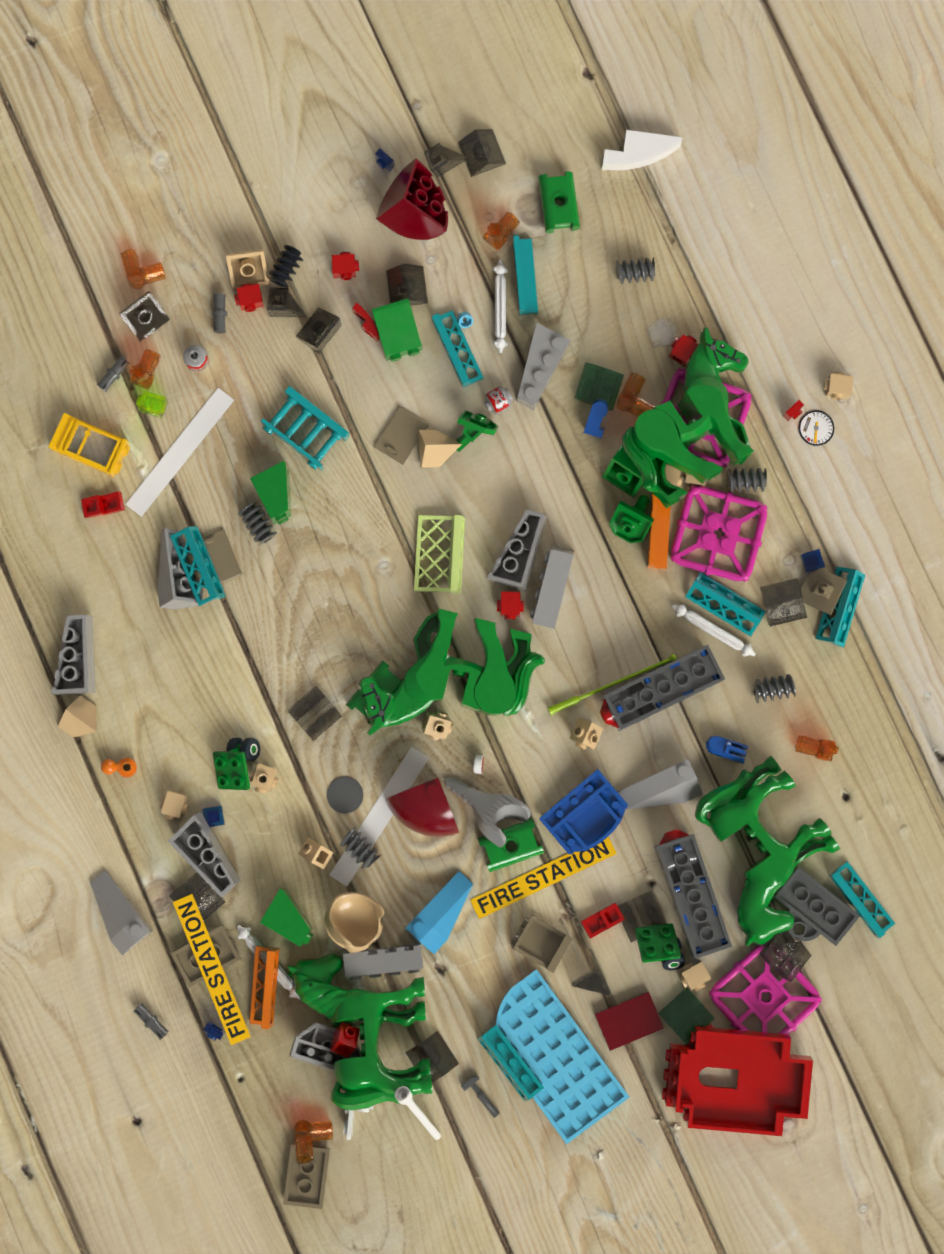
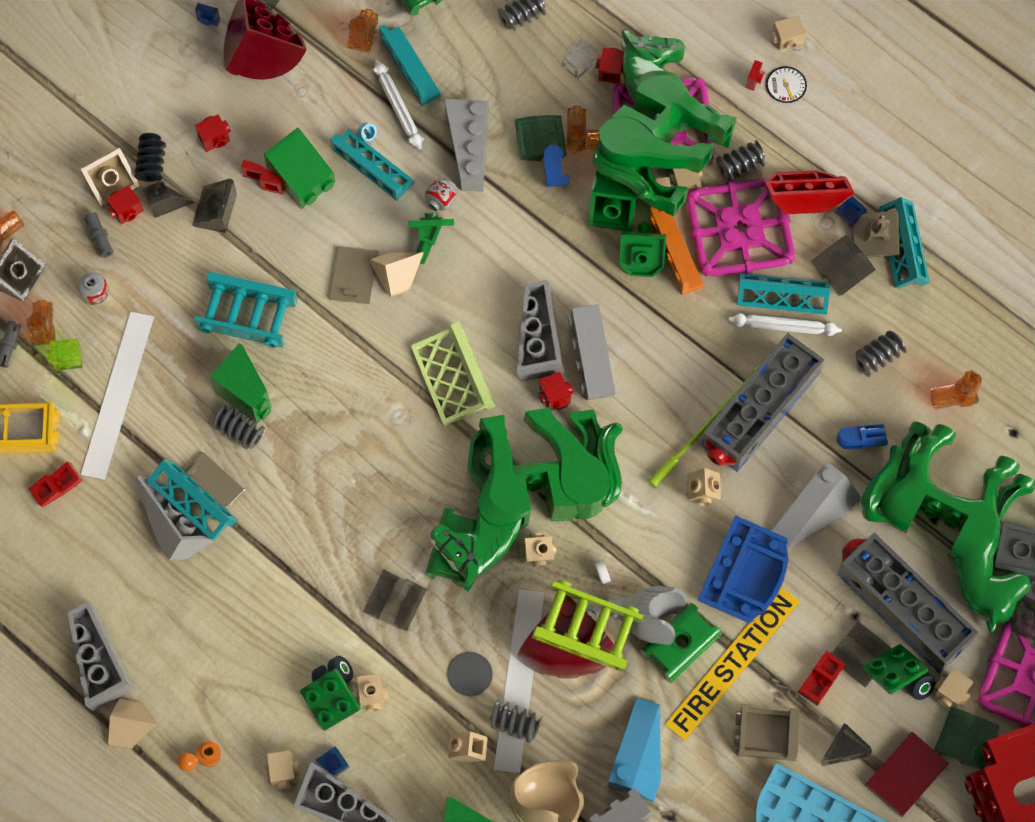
camera: 25 degrees left, 15 degrees down
(407, 282) = (284, 118): clear smoke slope -> none
(421, 816) = (591, 649): none -> lime fence
(784, 529) = (807, 191): none -> red wedge

